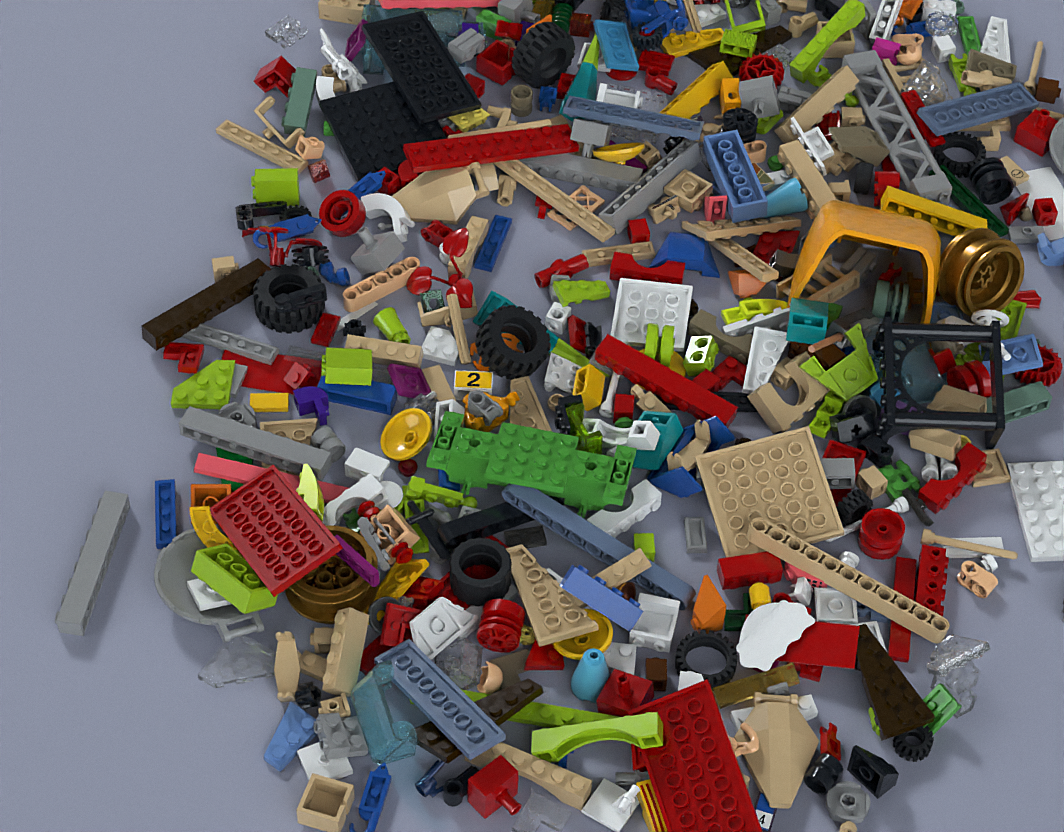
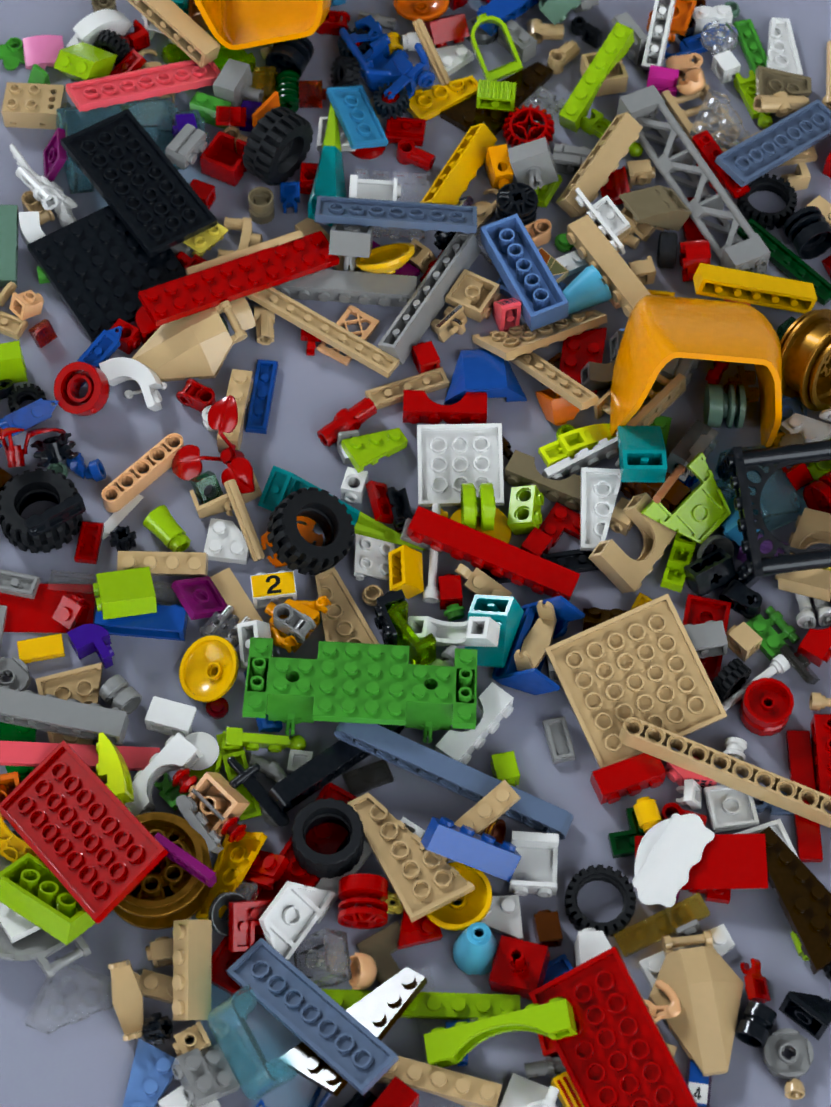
camera: 10 degrees left, 10 degrees up
(376, 251) = (130, 433): light grey brick -> none
(708, 608) = (592, 838): orange slope -> none

